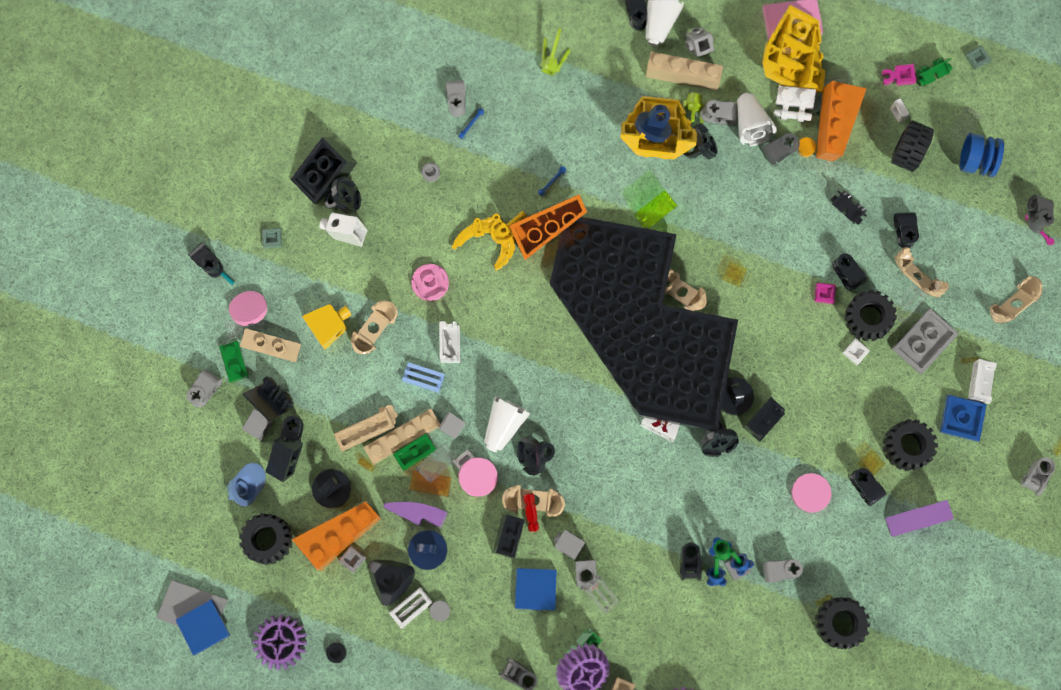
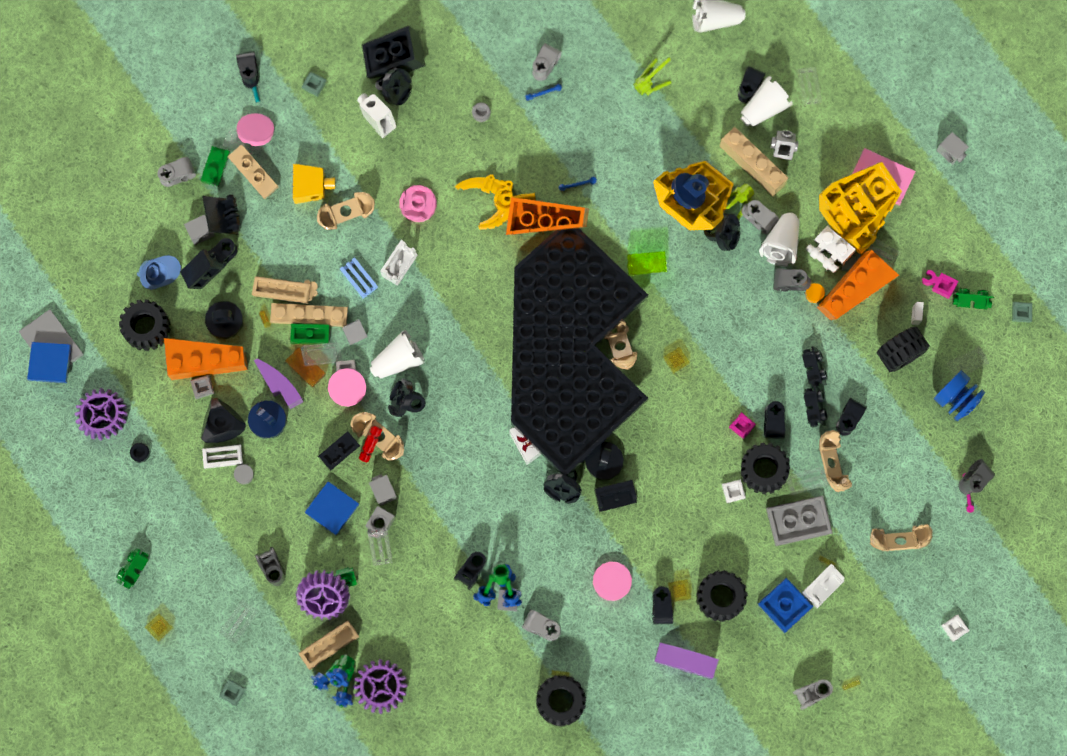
camera: 30 degrees right, 0 degrees up
(866, 234) = (815, 399): none -> black hinge

